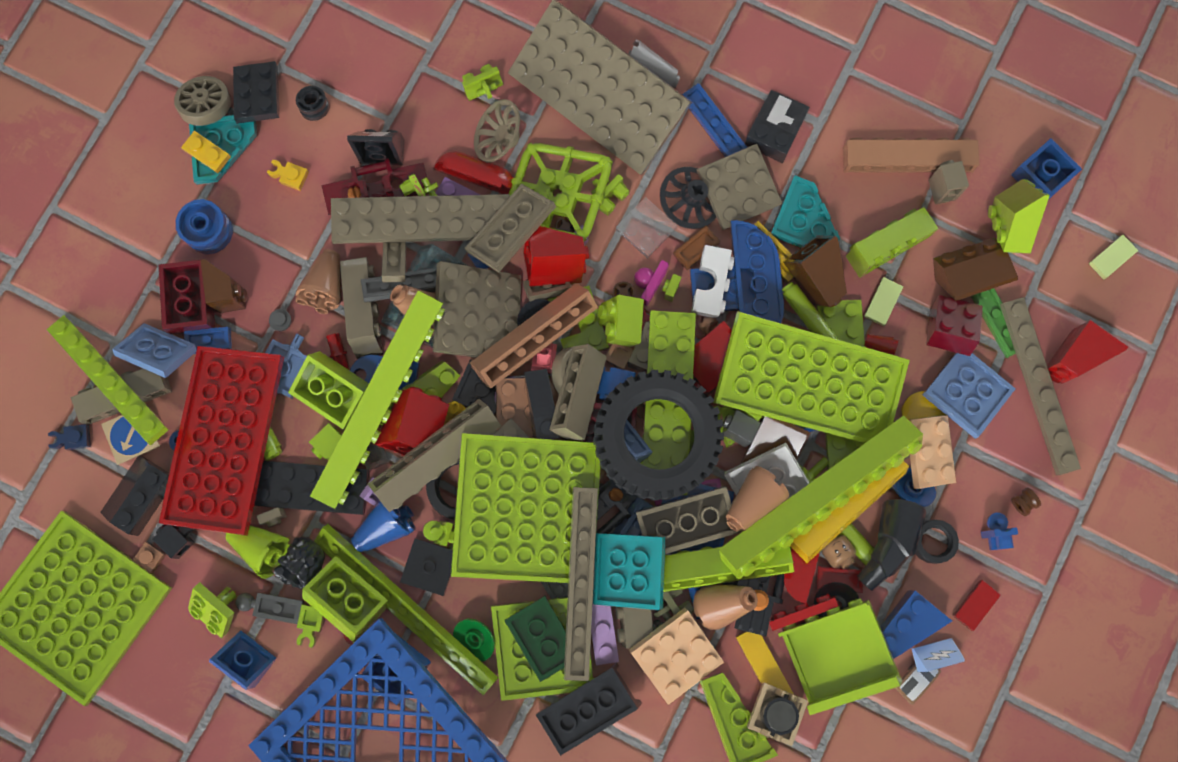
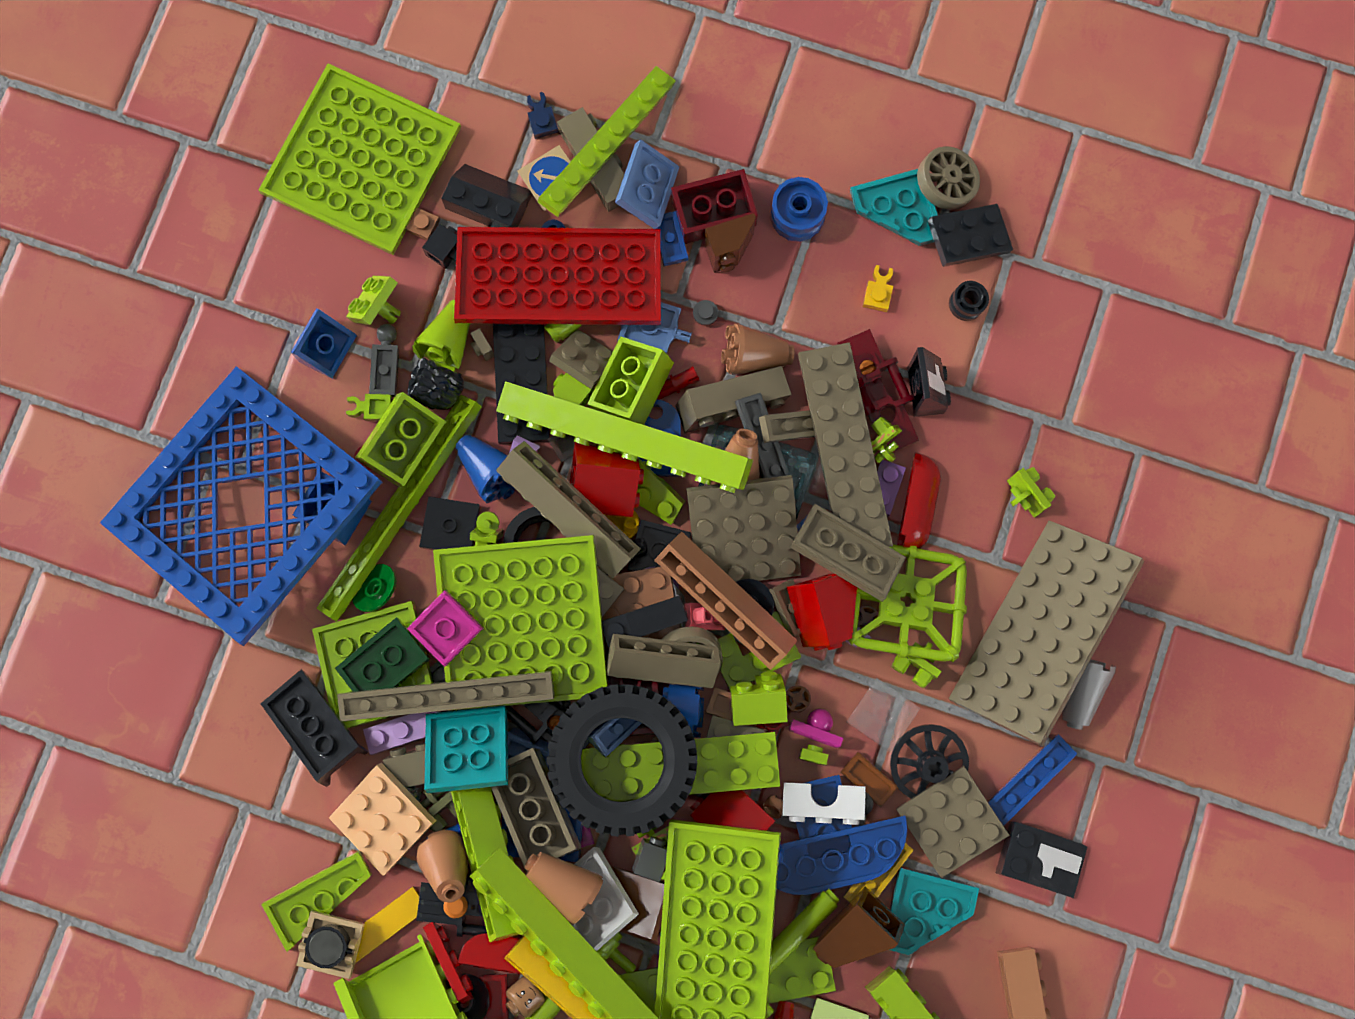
camera: 80 degrees right, 0 degrees up
(206, 152) = (886, 193): yellow plate -> none
(301, 429) = (582, 358): none -> dark tan plate
(503, 133) = (969, 528): dark tan wheel -> none
(521, 575) = (445, 628): none -> dark pink tile

